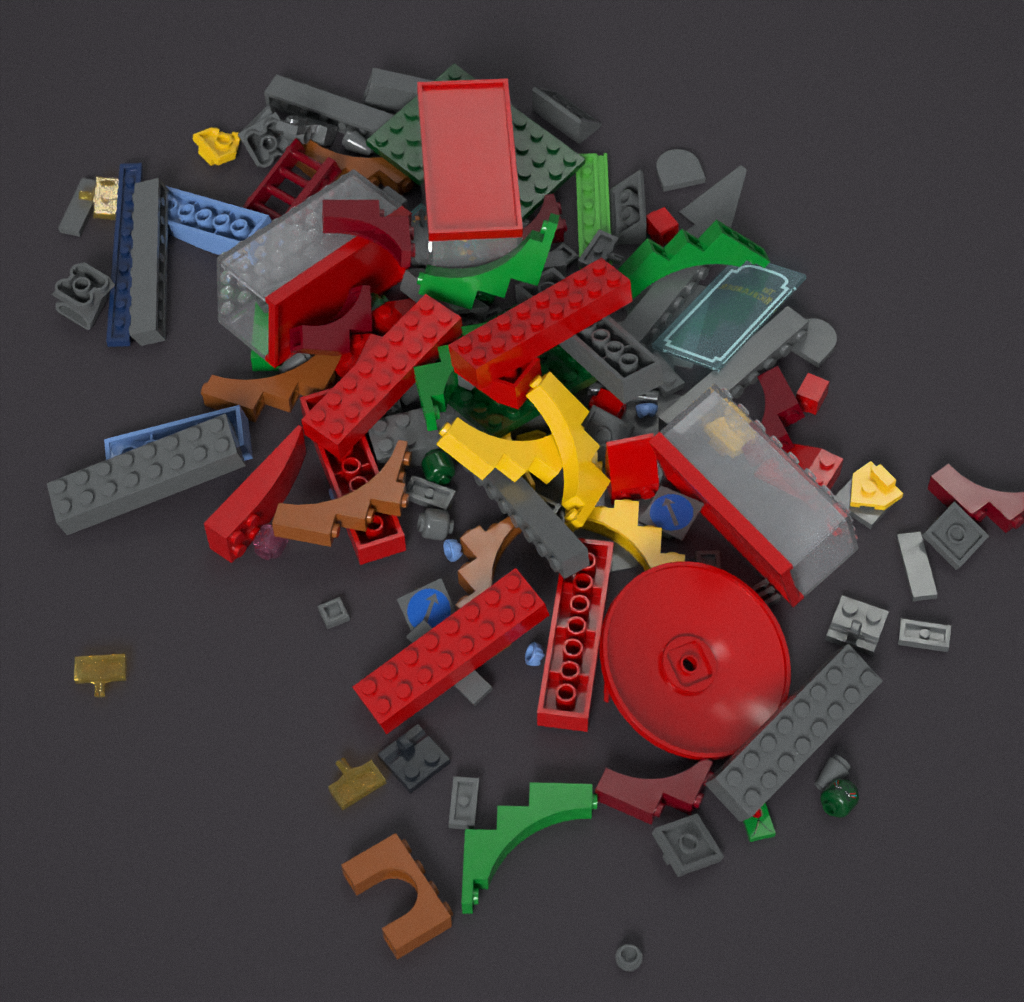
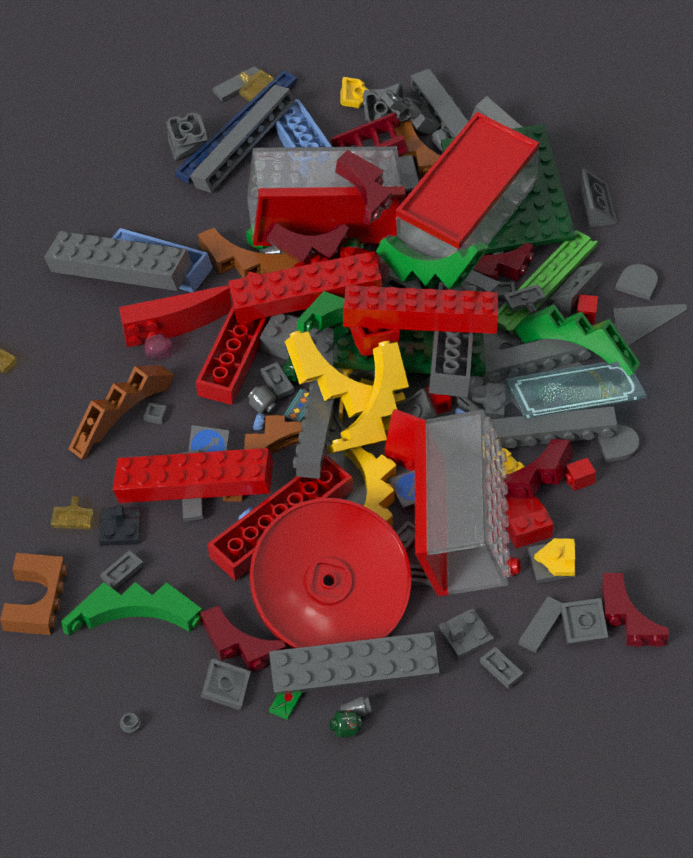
camera: 40 degrees right, 5 degrees down
(294, 643) = (122, 396): none -> dark orange arch
(322, 521) = (212, 355): dark orange arch -> none
(477, 506) = (297, 407): none -> dark grey tile

